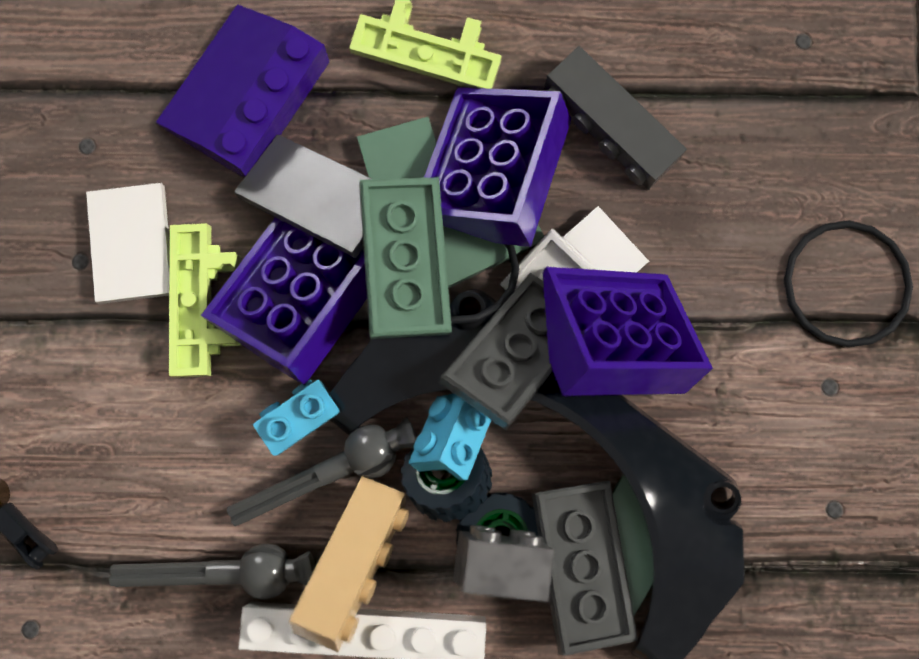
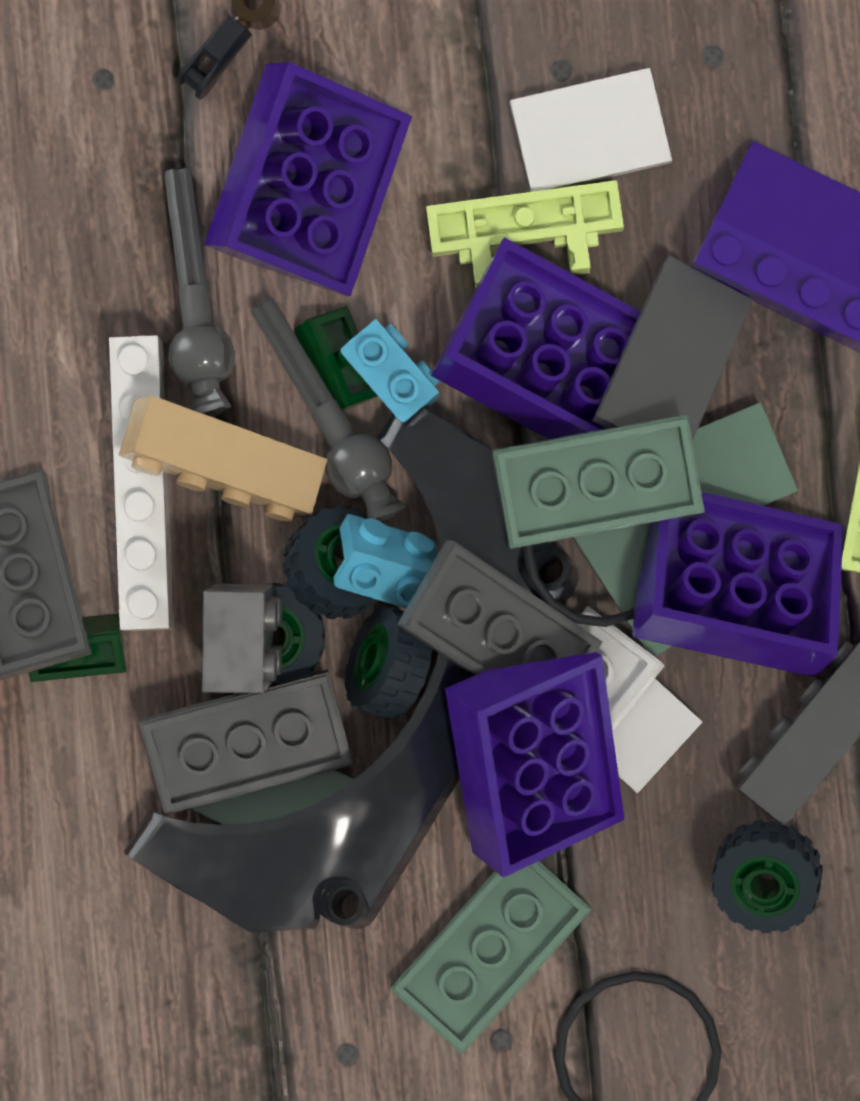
camera: 90 degrees right, 5 degrees up
(132, 469) = (308, 178): none -> dark purple slope
(266, 470) = (322, 341): none -> dark green slope
(534, 445) = (385, 666): none -> black wheel
(724, 167) = (772, 851): none -> black wheel
(764, 390) = (489, 952): none -> sand green tile

